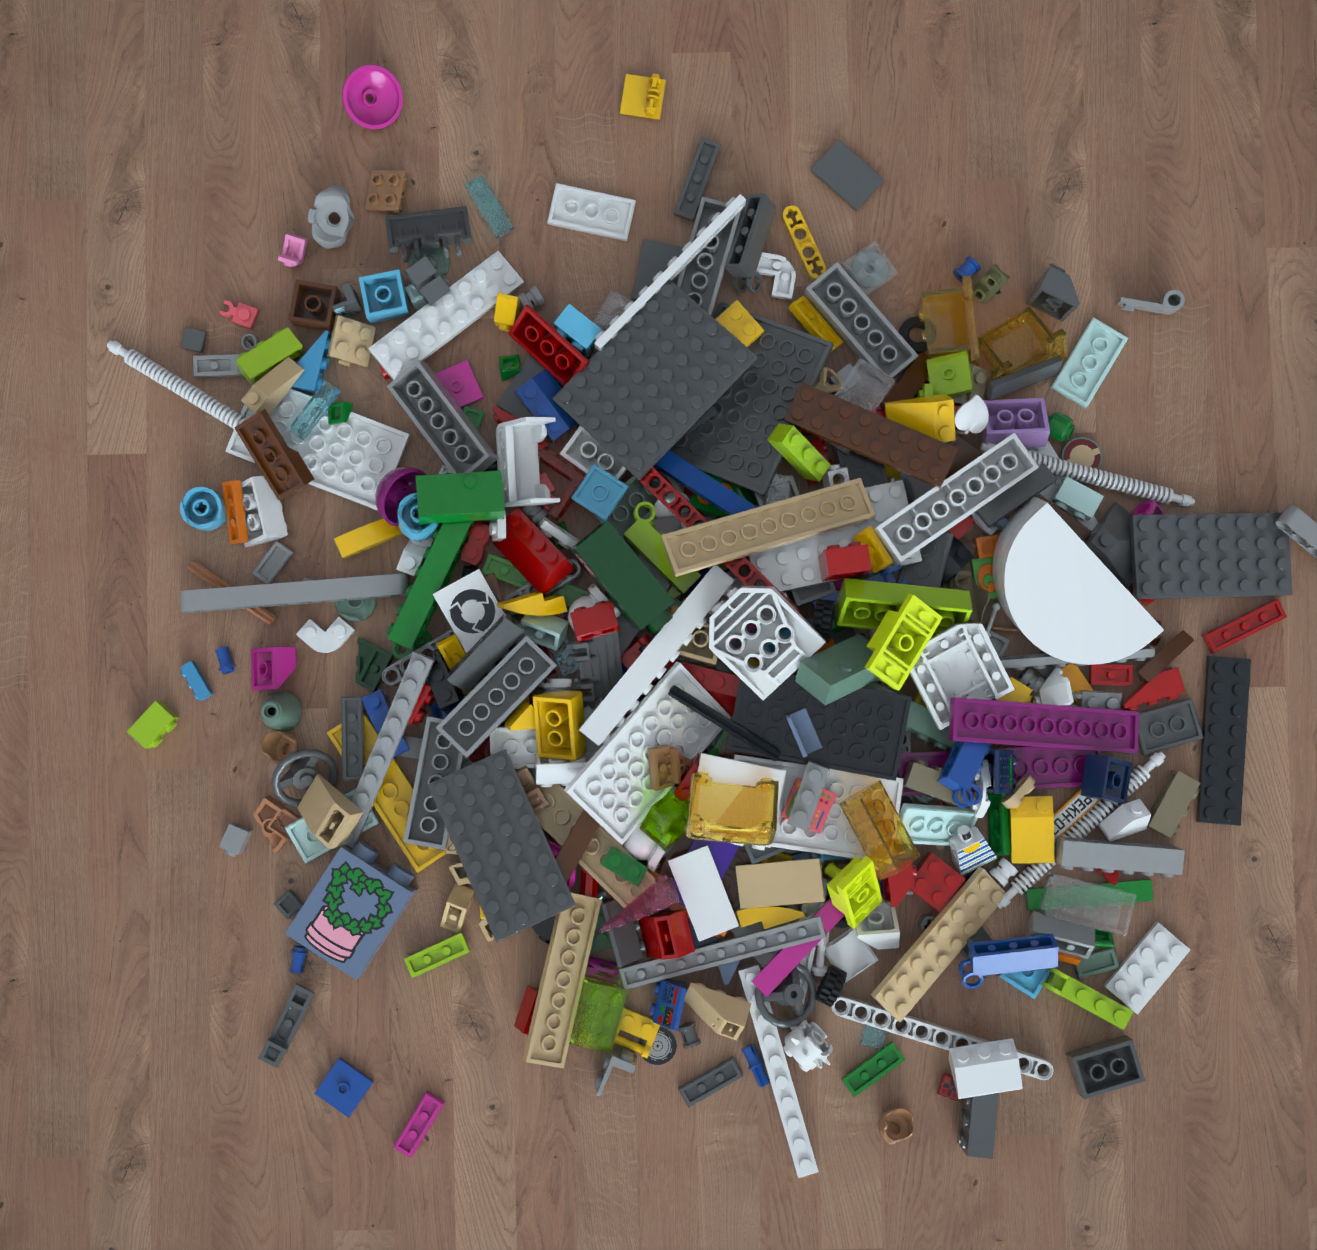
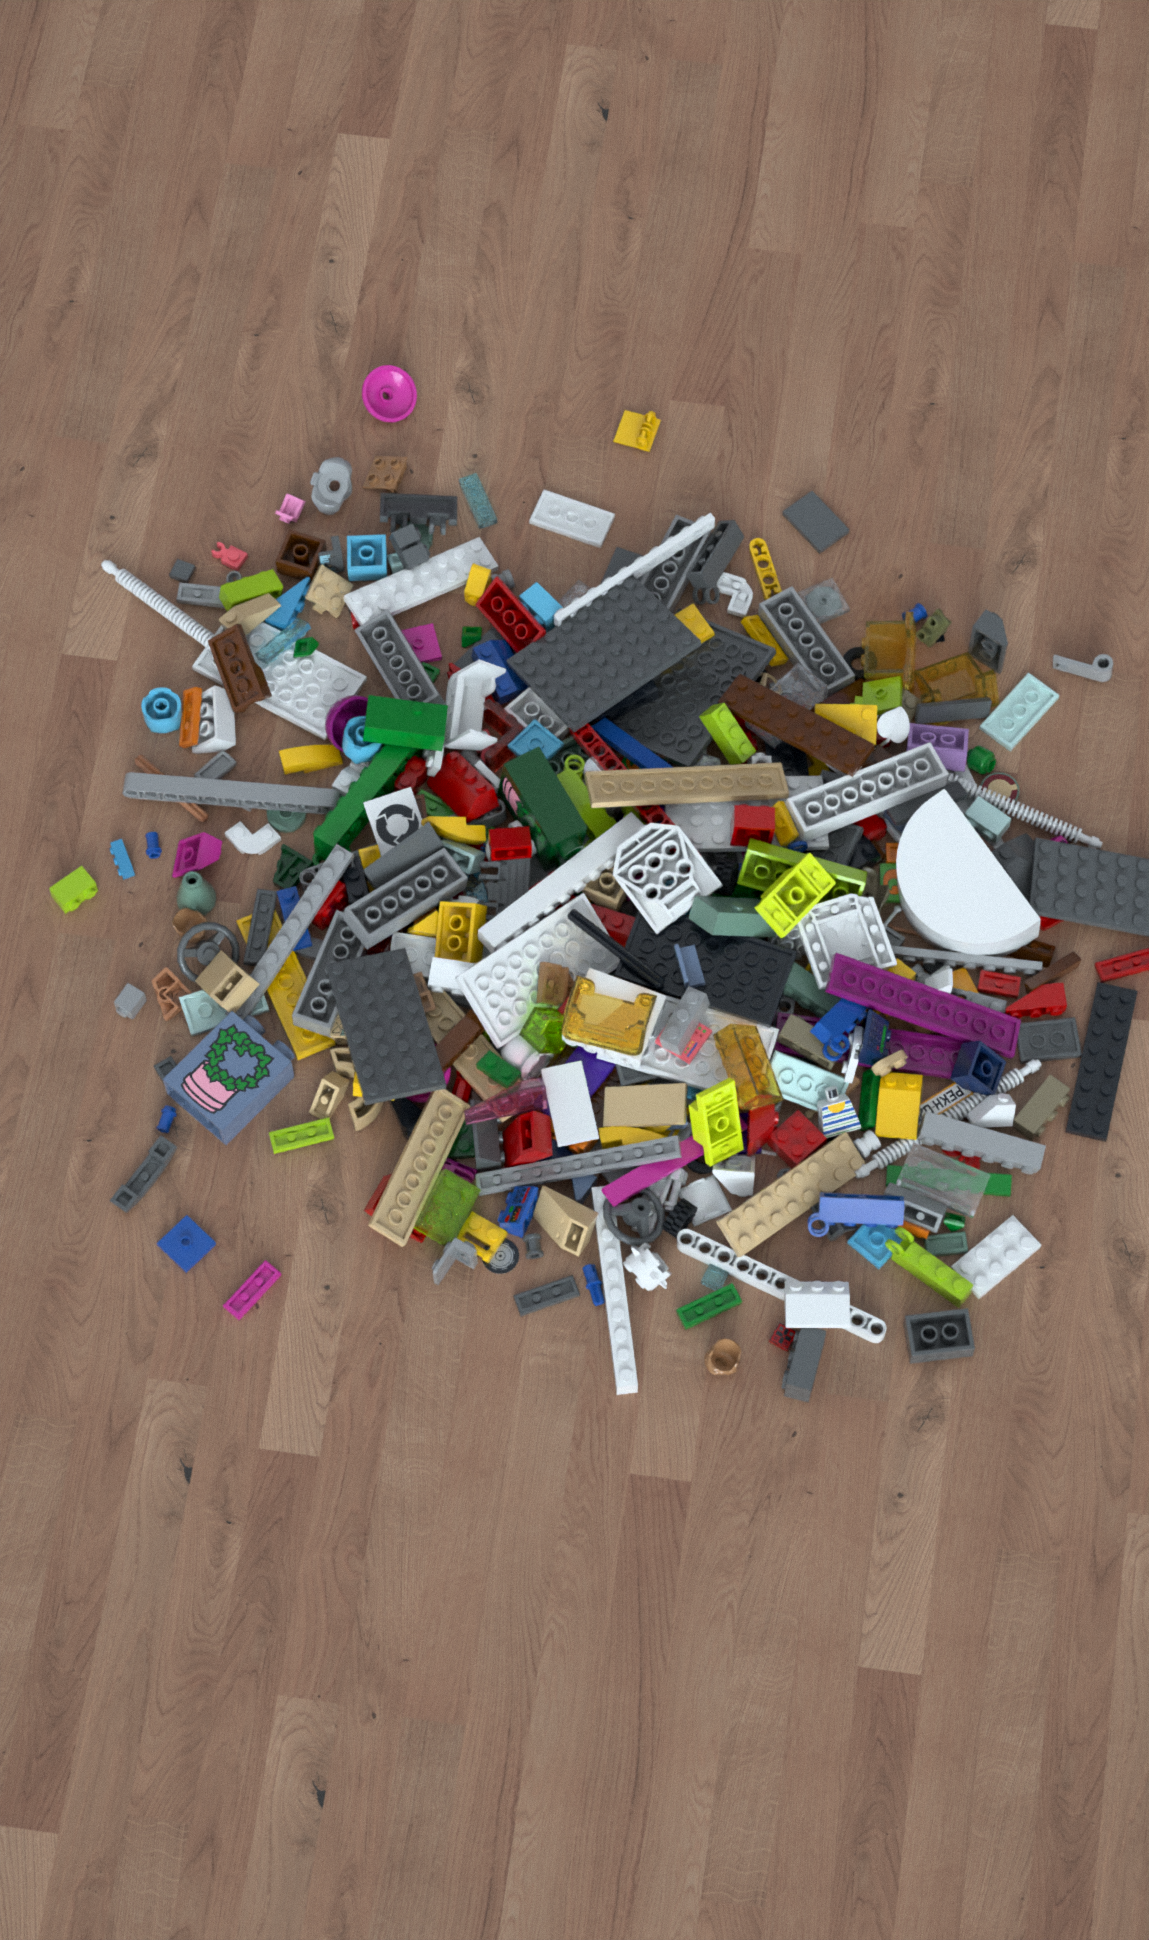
camera: 10 degrees right, 20 degrees down
(697, 179) = (675, 503): dark grey plate -> none

